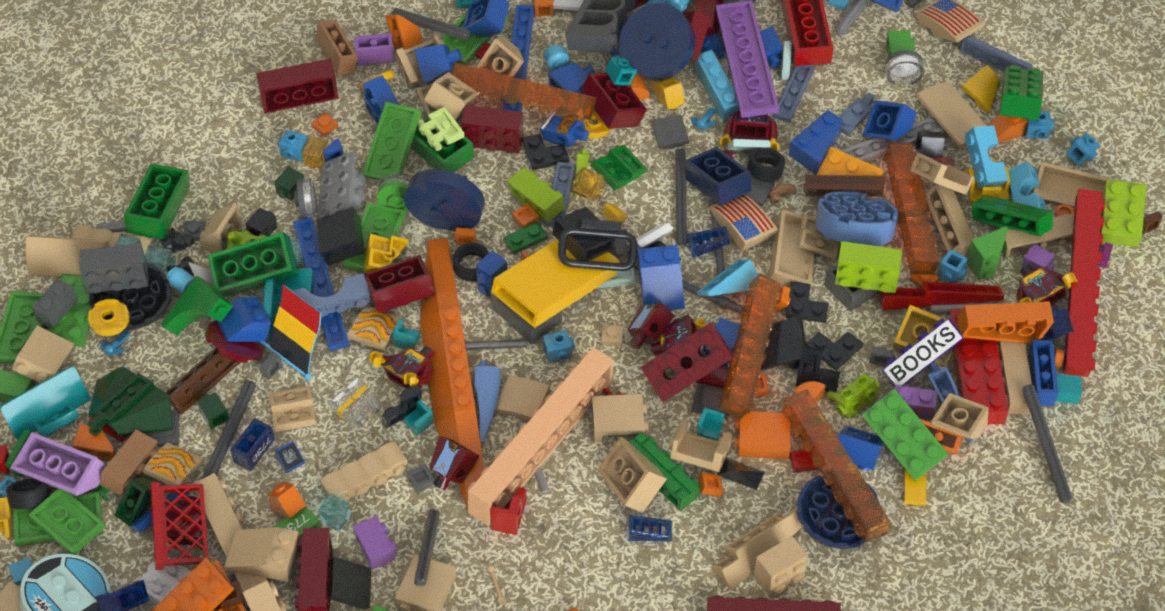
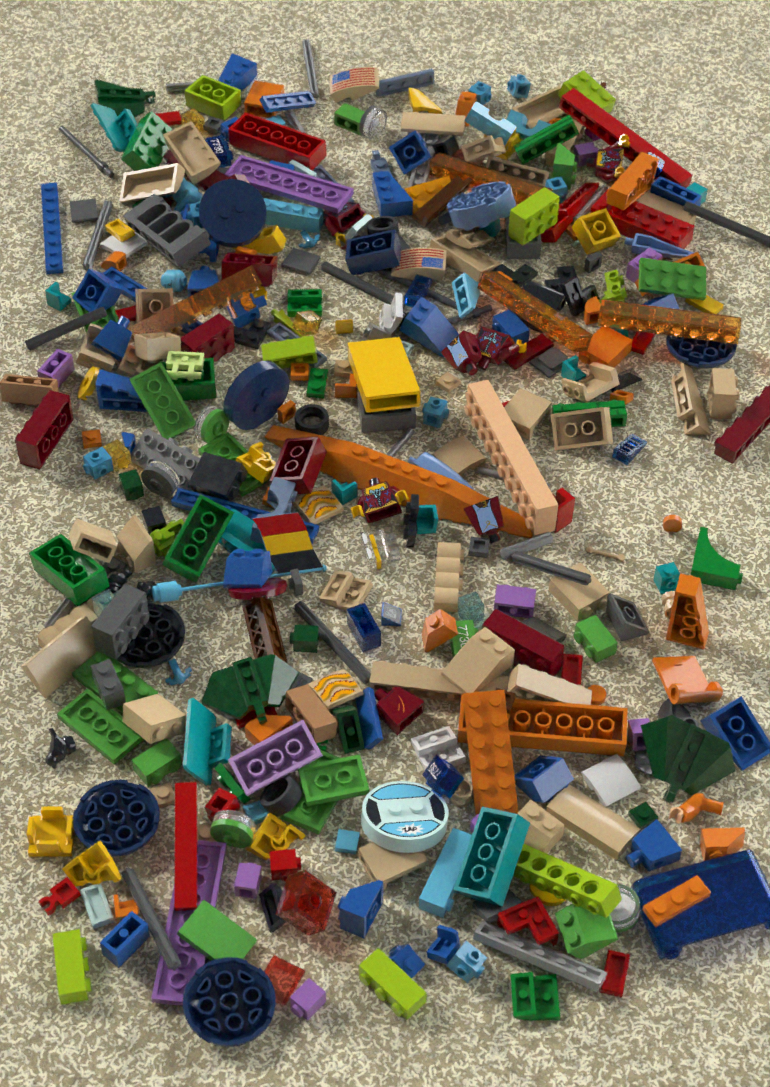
camera: 55 degrees left, 5 degrees down
(112, 326) = (157, 665): yellow tile -> none
(160, 531) = (398, 716): red fence -> none
(194, 195) = (92, 540): none -> tan brick
(197, 301) = (204, 585): green arch -> none
(404, 33) = (61, 340): orange slope -> none
(454, 514) = (526, 545): none -> light grey axle
(487, 270) = (340, 411): blue brick -> none
(582, 246) = (363, 338): black brick -> none
(603, 229) = (375, 322): black bar -> none
(620, 71) = (233, 247): teal brick -> none
(673, 358) = (522, 345): dark red brick -> none
(775, 193) = (408, 236): medium nougat arm -> none
(923, 353) = (618, 235): brick -> none
(961, 417) = (686, 242): tan slope -> none
(1022, 92) = (454, 81): green brick -> none

